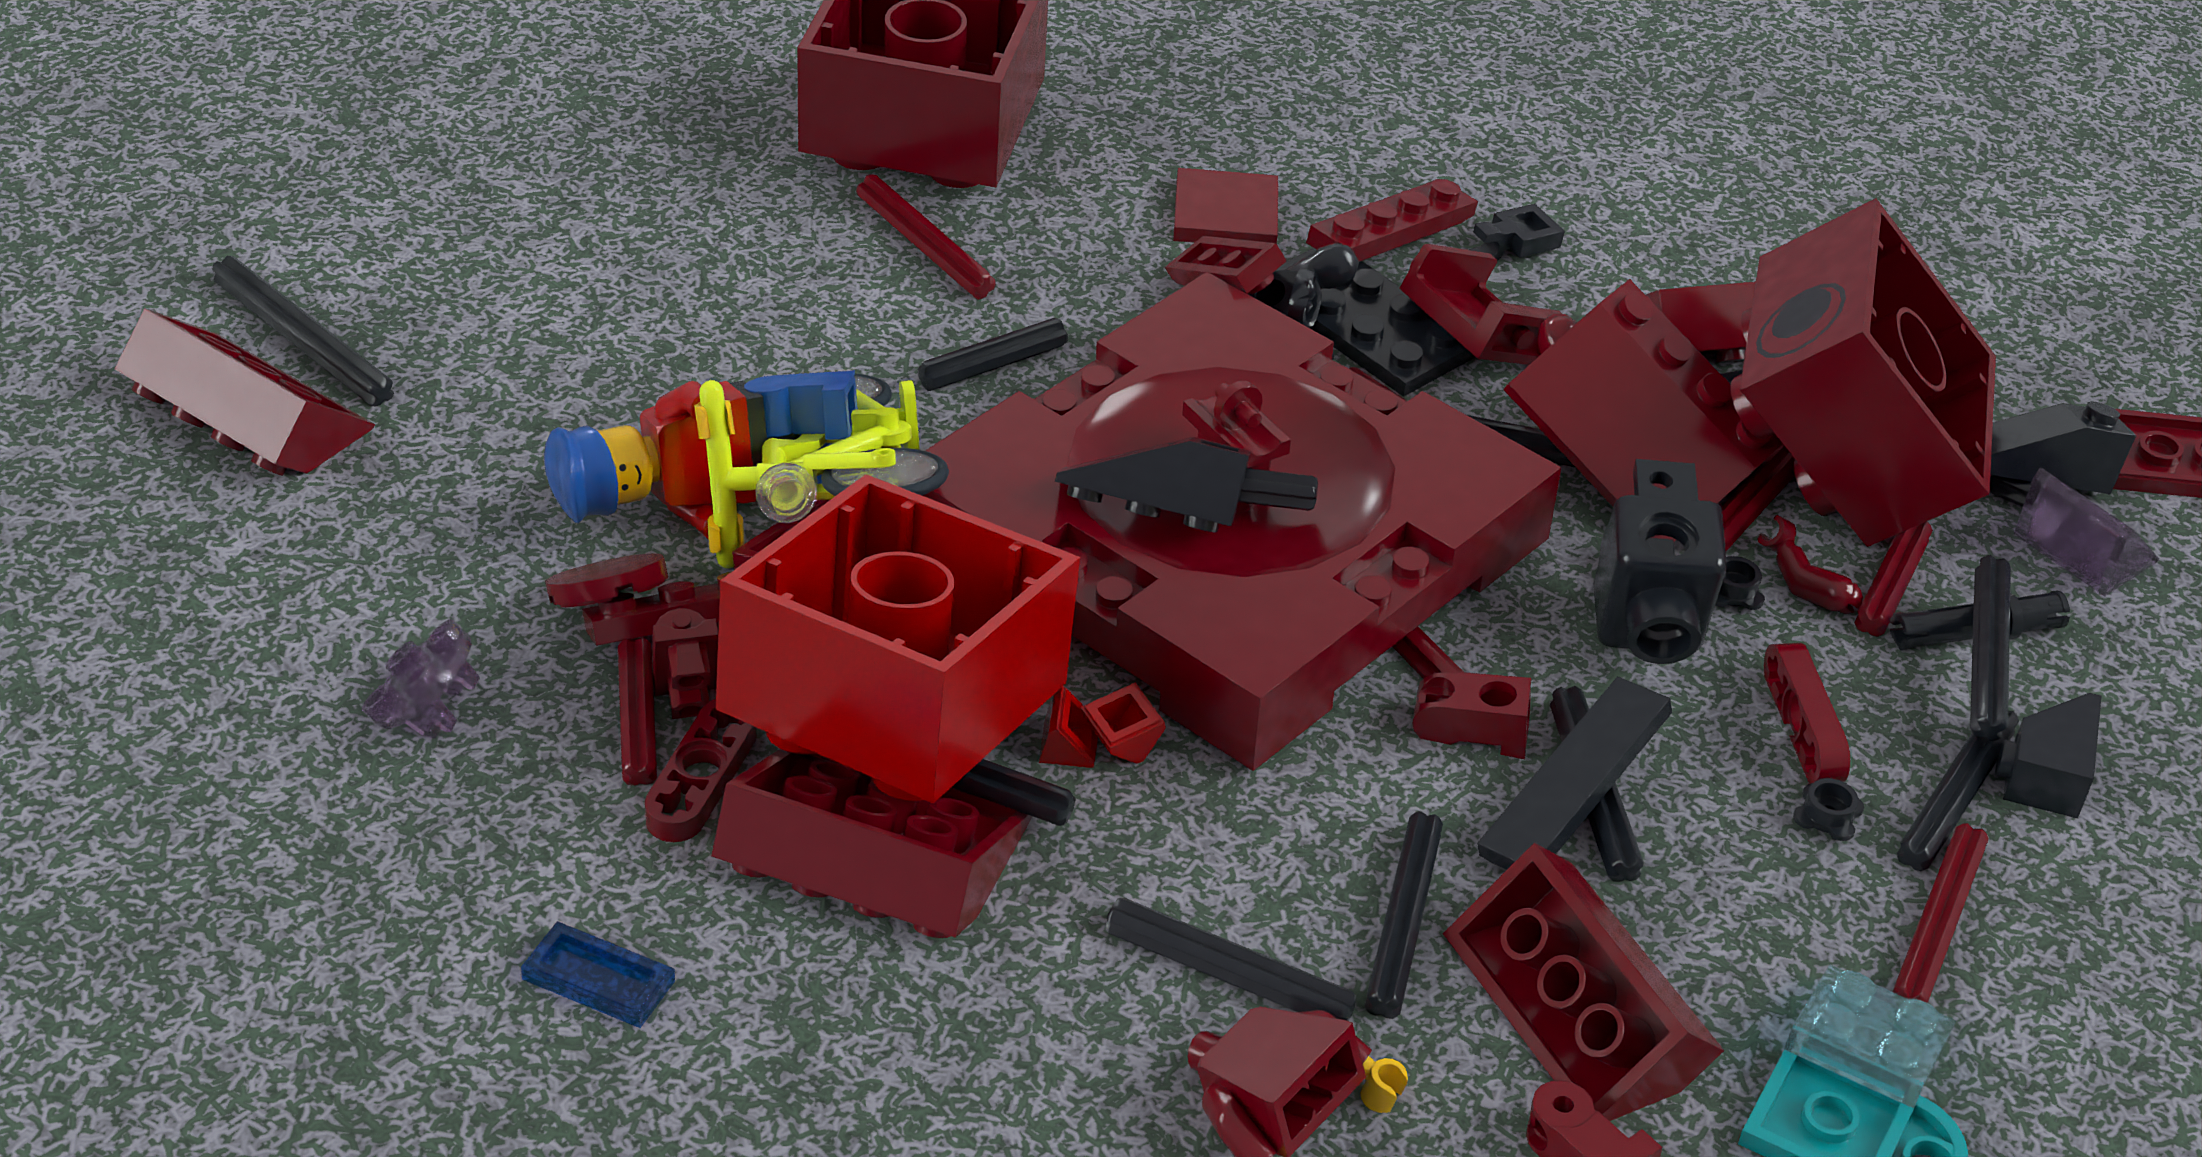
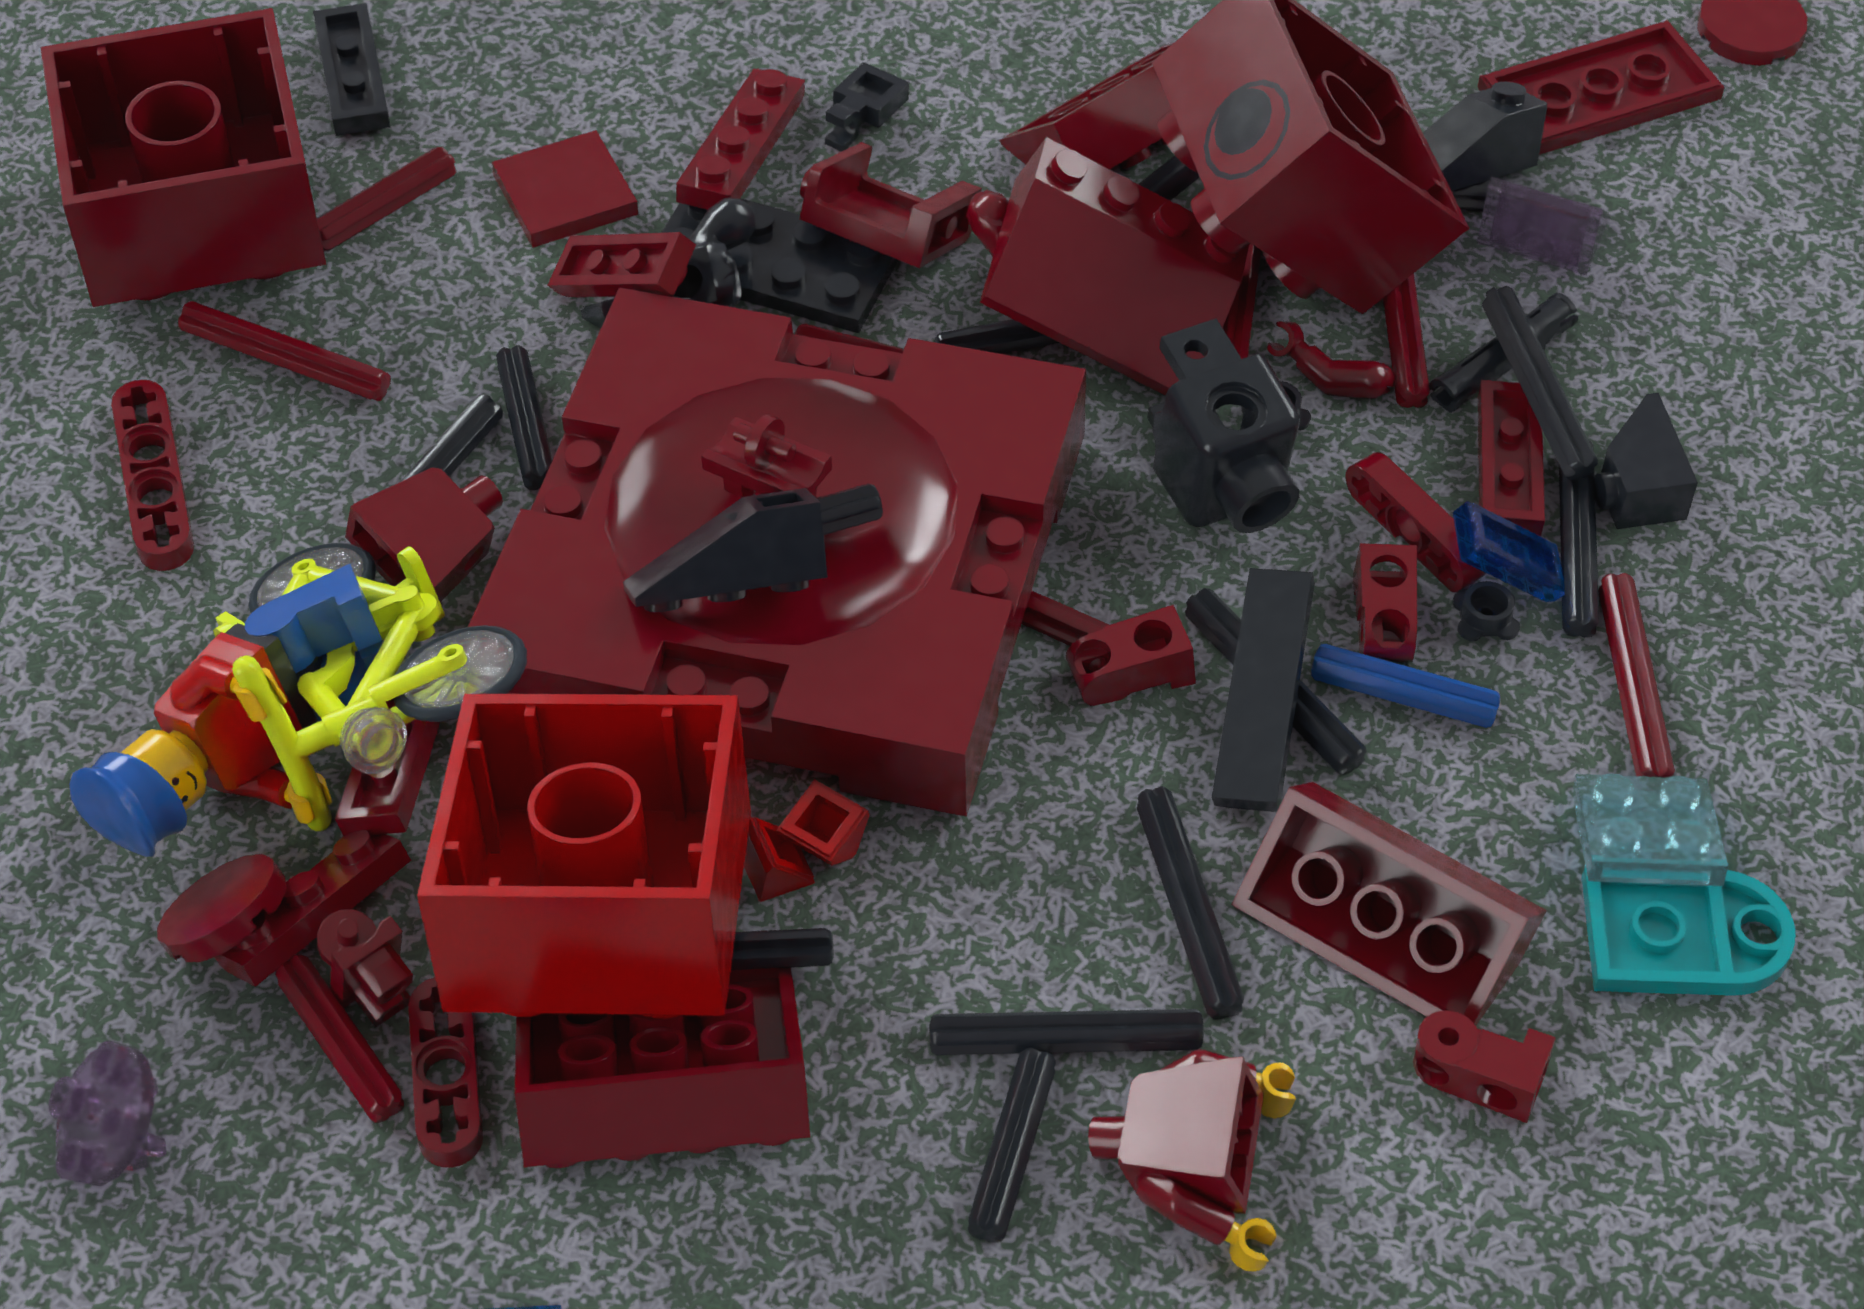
camera: 25 degrees left, 10 degrees up
(767, 280) = (150, 475): none -> dark red beam
(948, 383) = (433, 518): none -> dark red torso
(1076, 163) = (385, 197): none -> dark red axle
(1092, 326) = (524, 415): none -> black axle
(1109, 68) = (351, 69): none -> black plate
(1124, 1024) = (1011, 1146): none -> black axle
(1715, 834) = (1405, 685): none -> blue axle
(1734, 762) = (1386, 601): none -> dark red leg
(1875, 765) = (1508, 552): none -> clear blue tile
(1926, 704) = (1510, 455): none -> dark red plate

